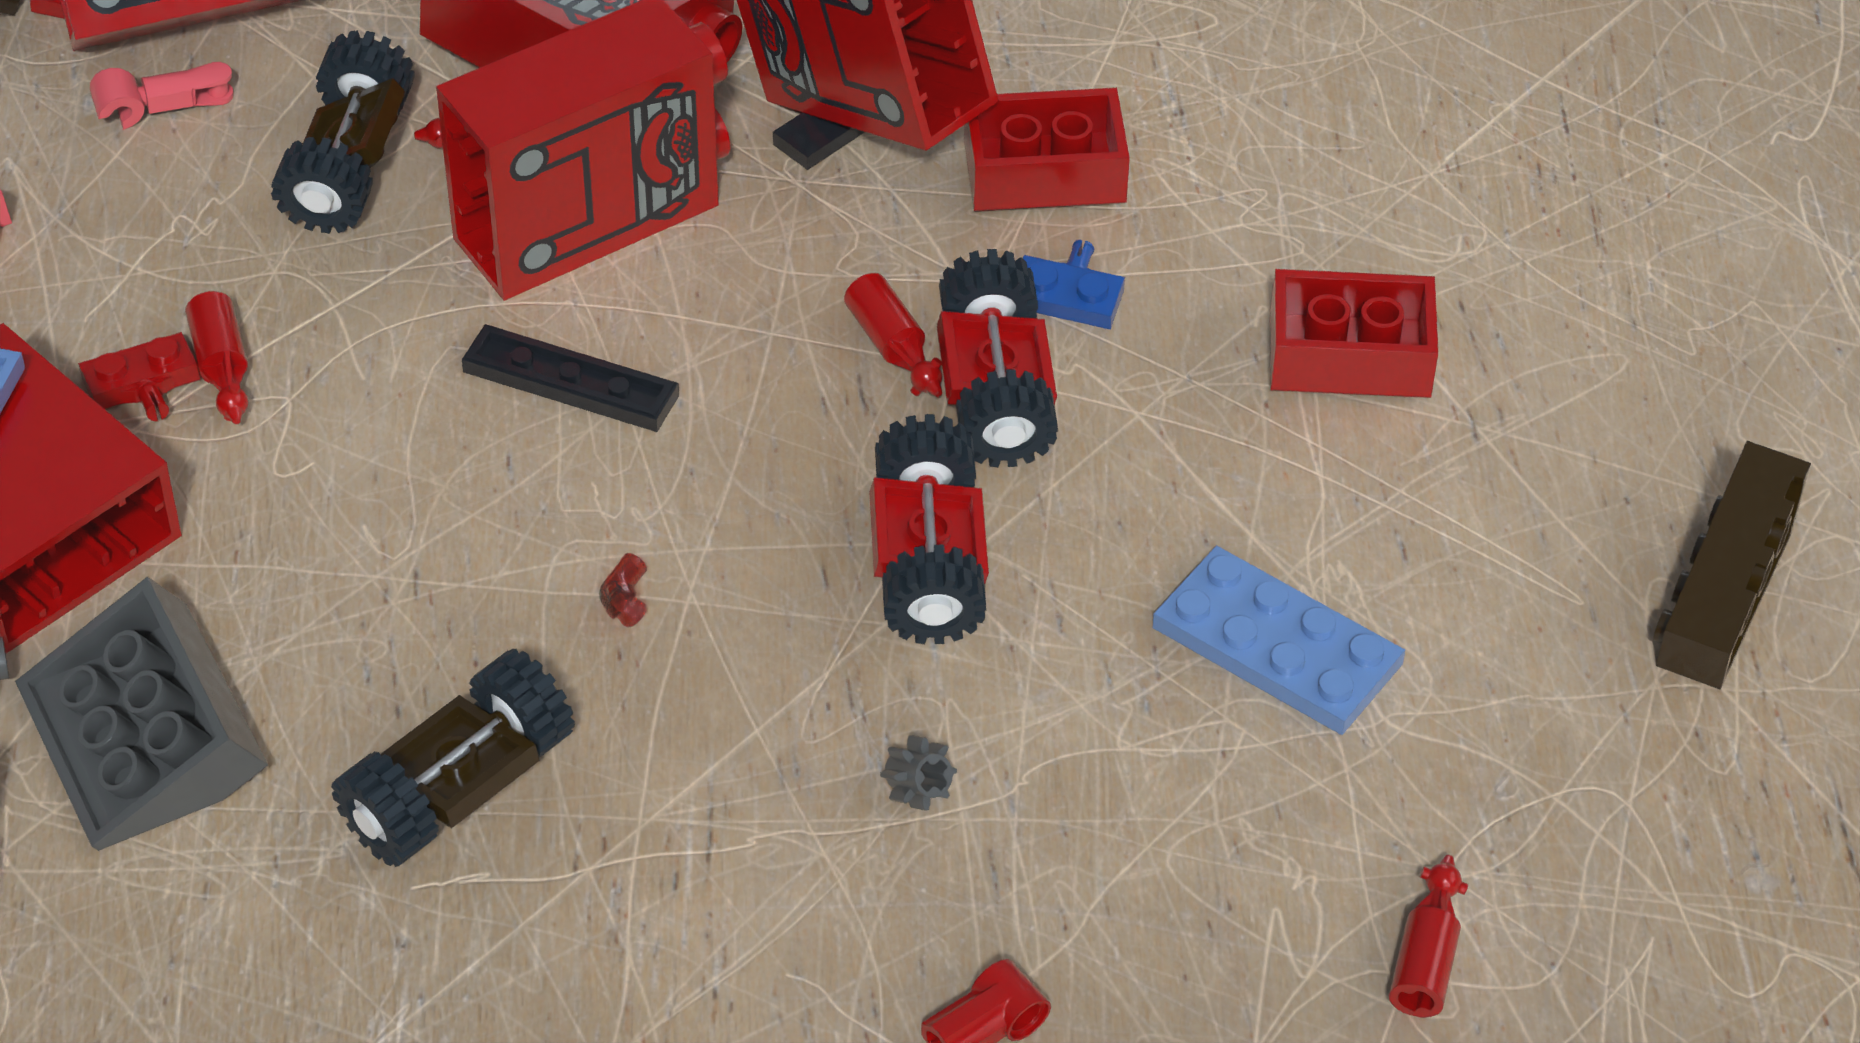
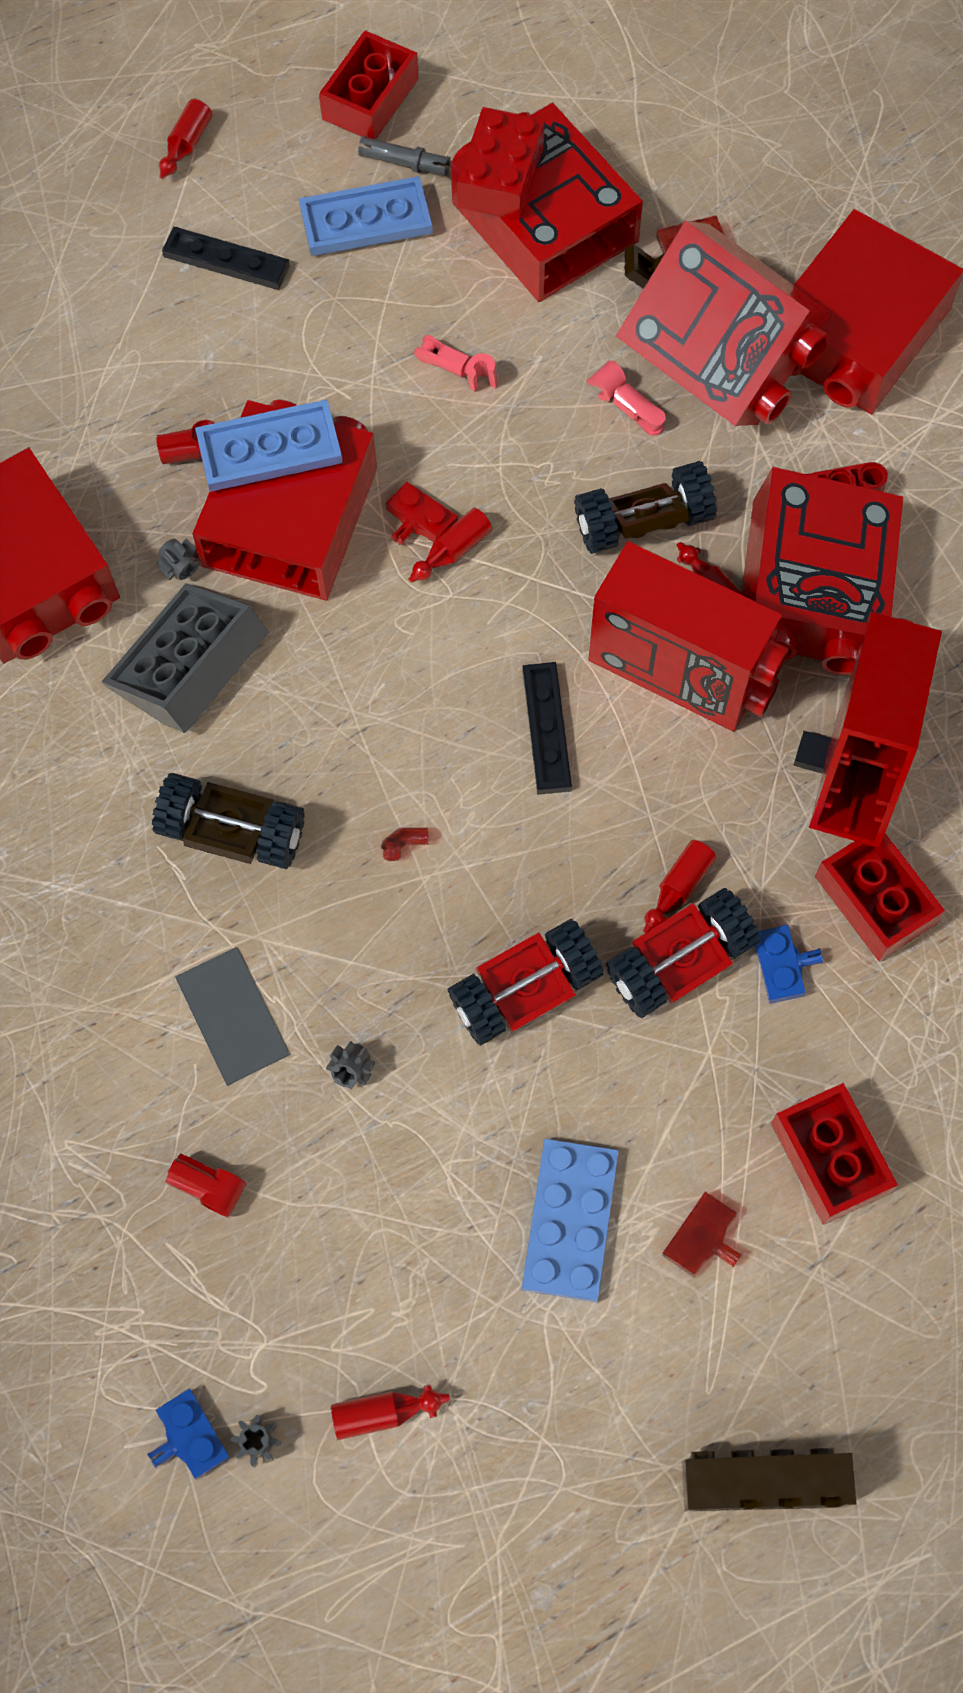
camera: 65 degrees right, 20 degrees up
(742, 899) = (232, 1016): none -> dark grey sticker
(1379, 515) = (703, 1236): none -> clear red plate

